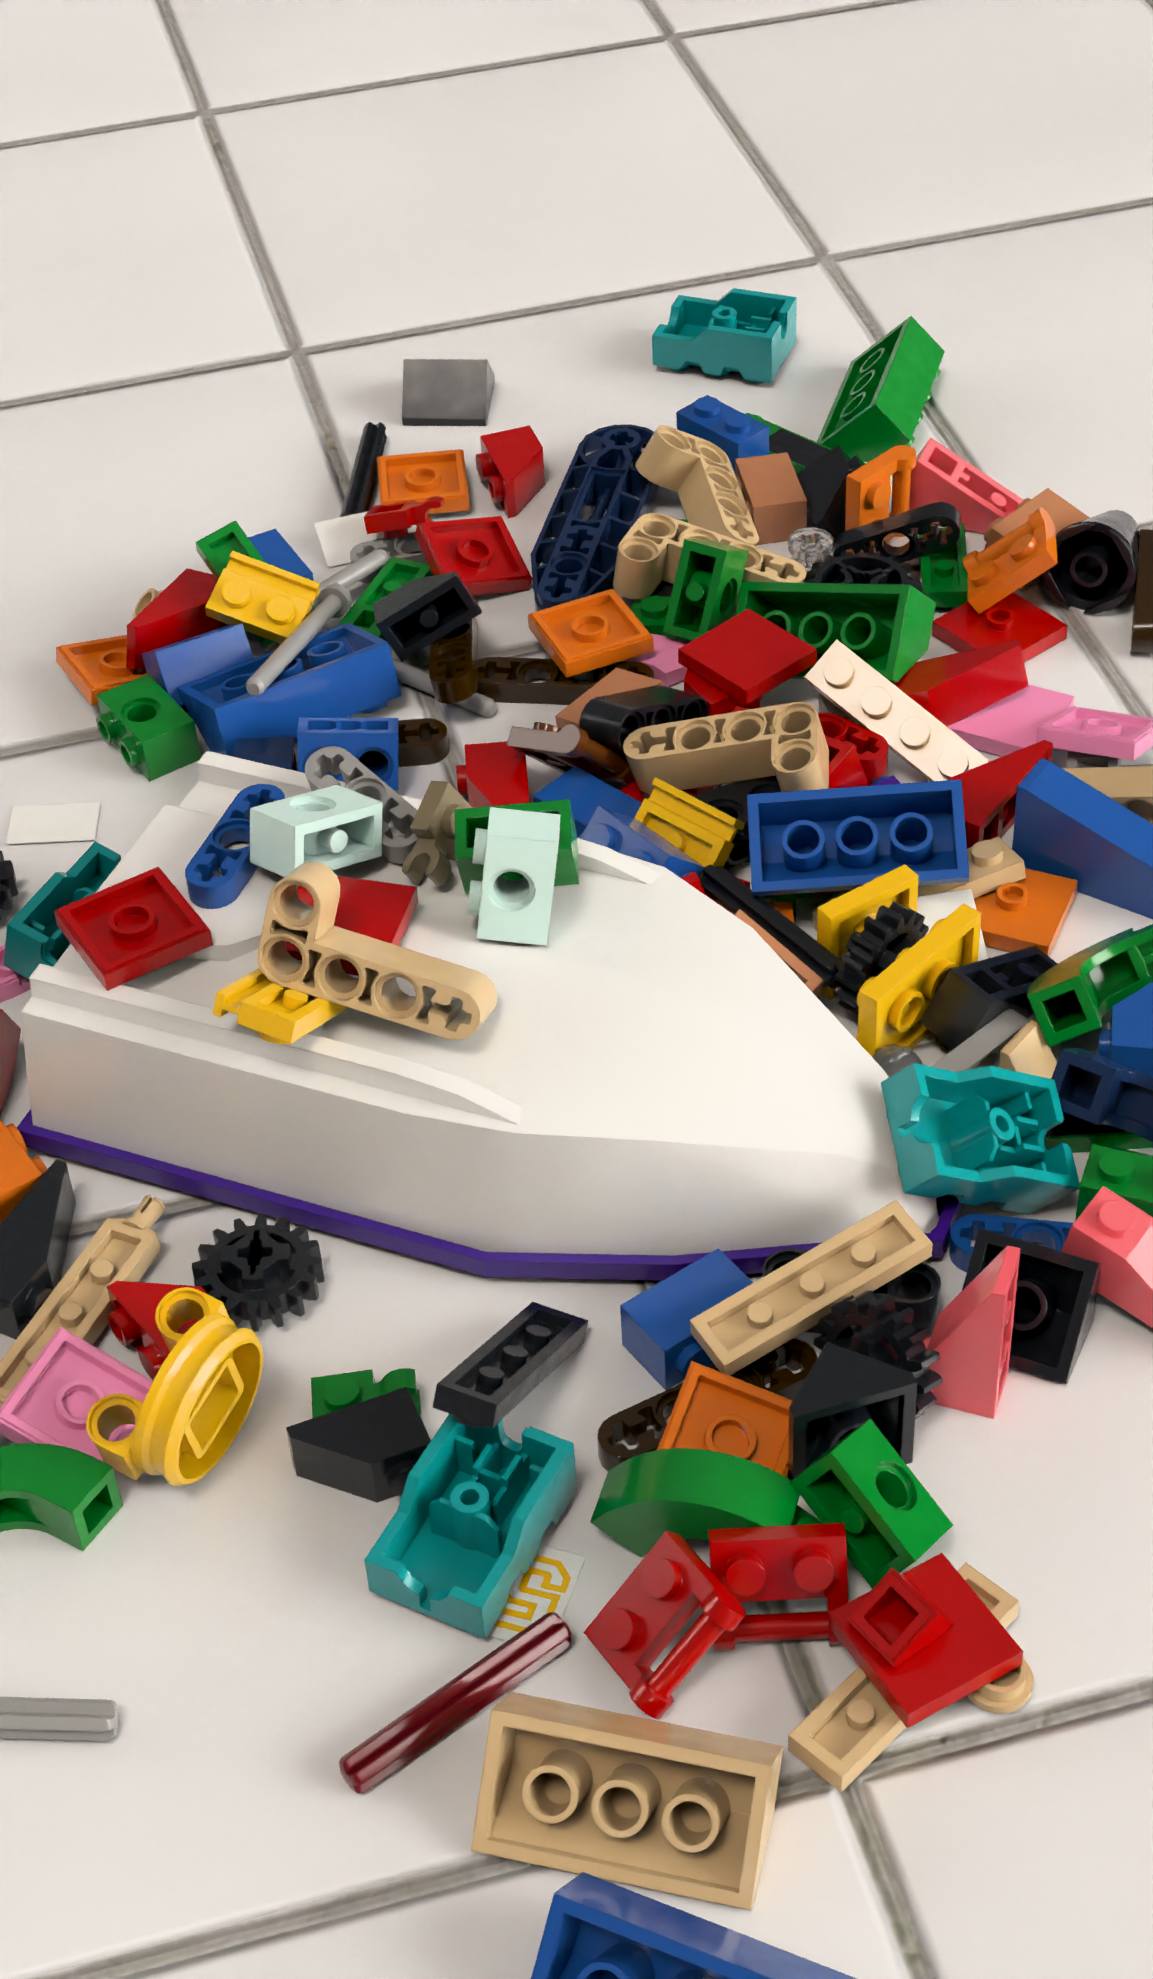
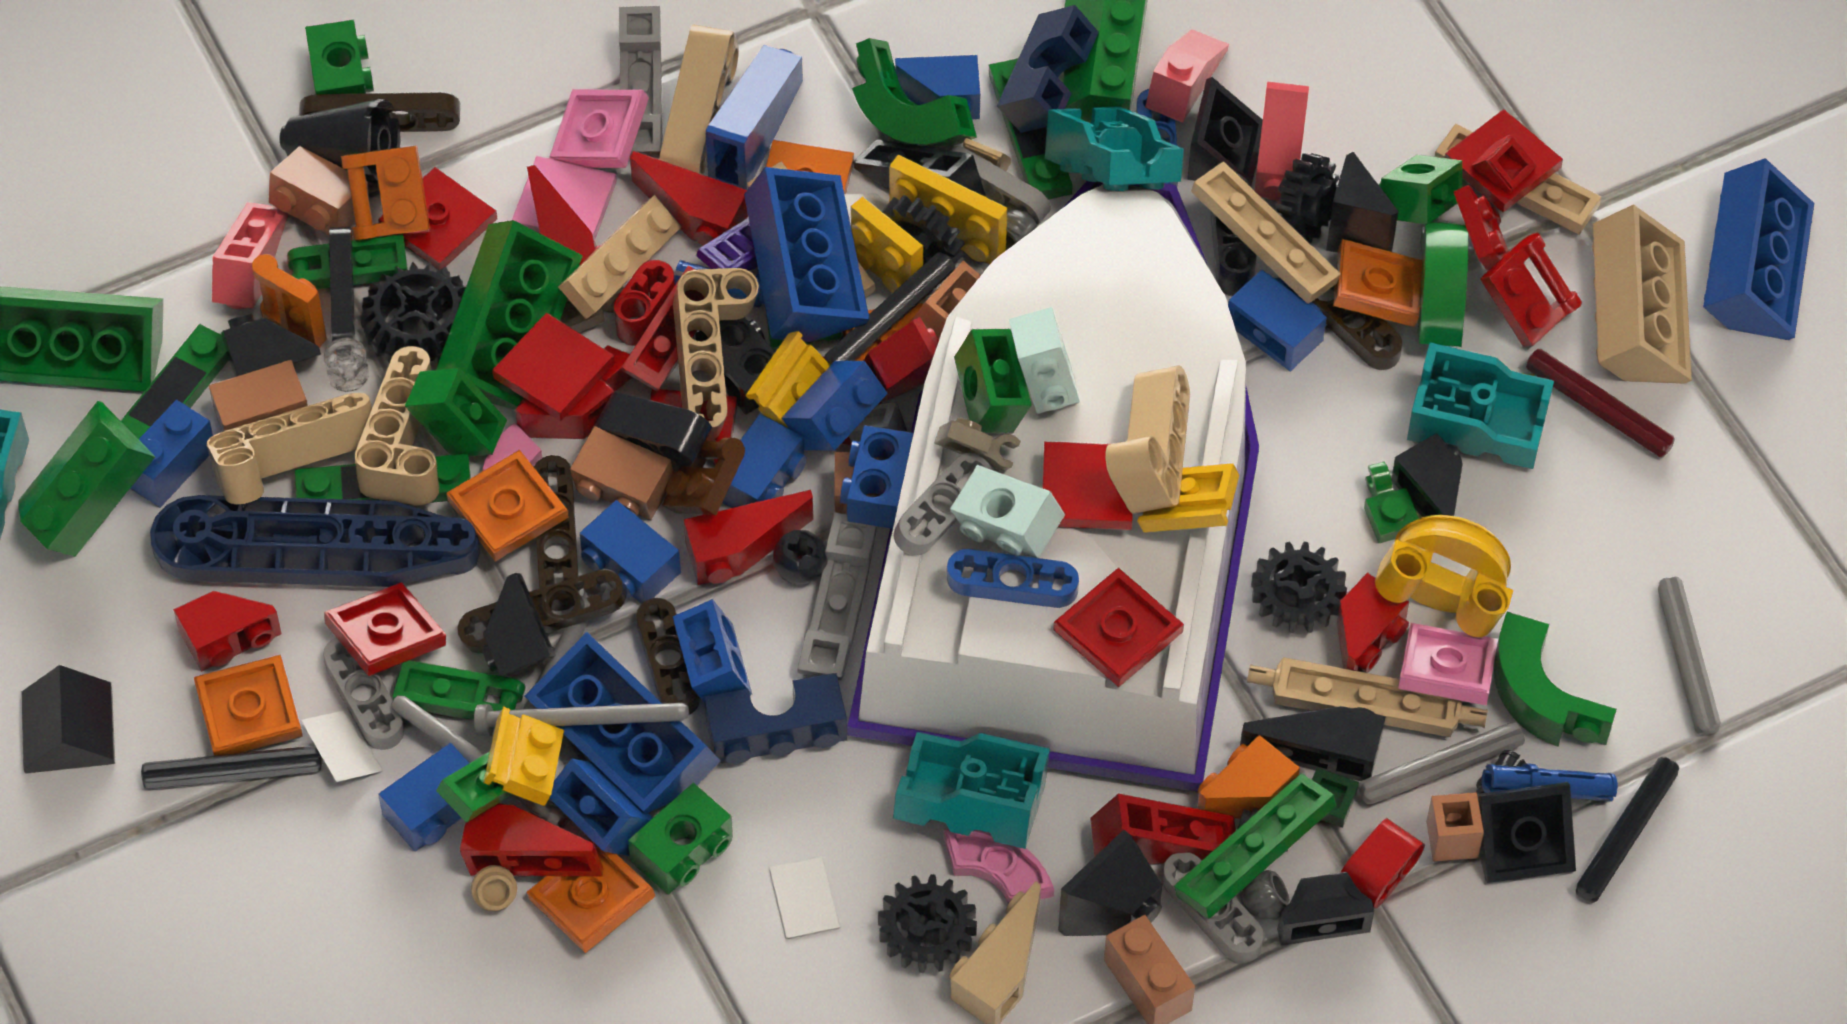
camera: 105 degrees left, 15 degrees up
(395, 518) = (340, 697): red plate -> none
(509, 1365) = (1367, 392): black plate -> none
(514, 702) = (632, 550): none -> blue brick
(686, 370) = (83, 482): none -> green slope

